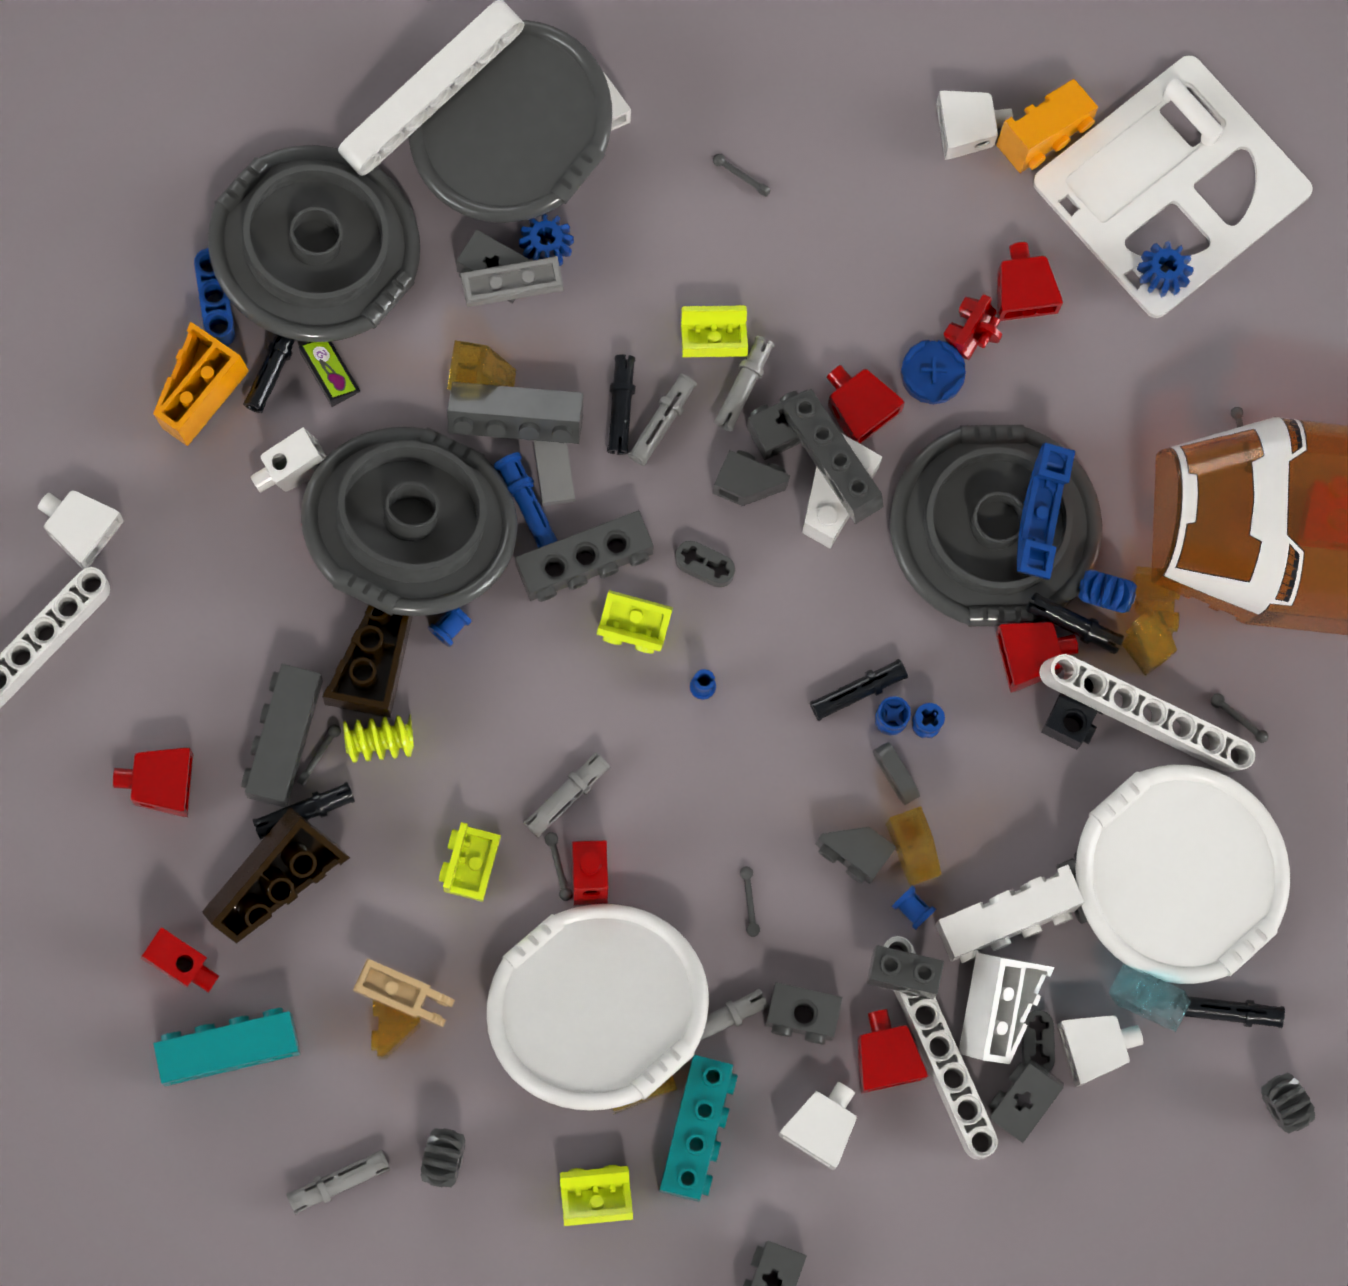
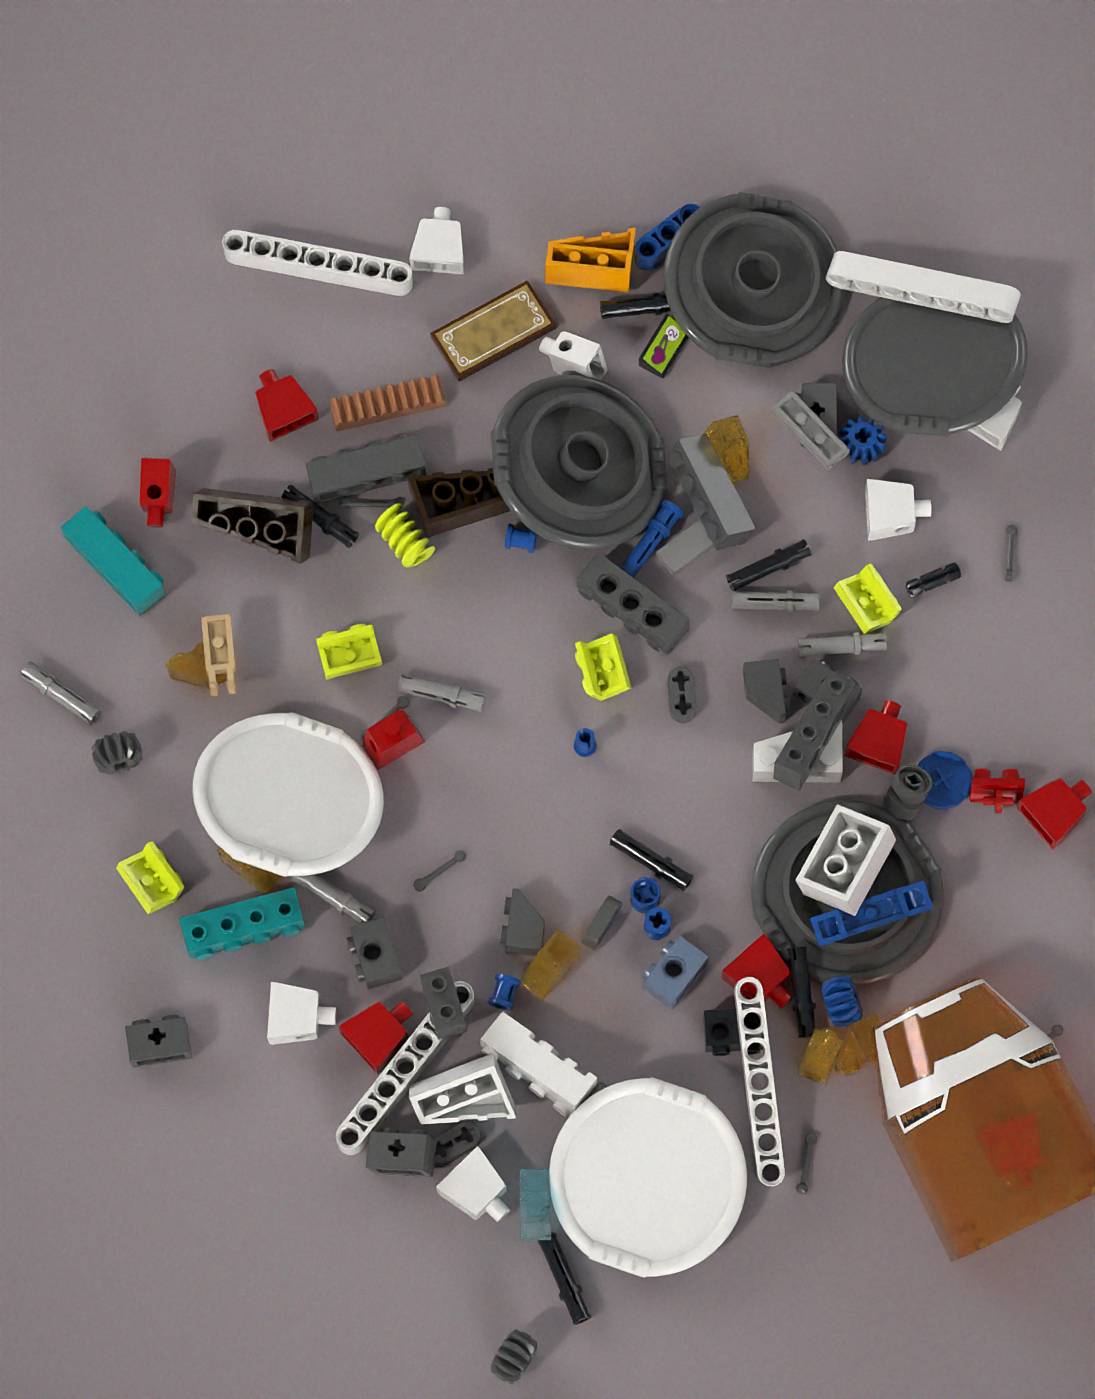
camera: 70 degrees right, 5 degrees down
(206, 526) = (493, 330): none -> pearl gold tile
(220, 675) = (387, 403): none -> nougat gear
(633, 255) = (892, 508): none -> white torso
(727, 260) = (933, 579): none -> black axle
(934, 408) = (907, 792): none -> dark grey wheel
(984, 502) = (846, 860): none -> white brick
(986, 712) = (671, 989): none -> sand blue brick

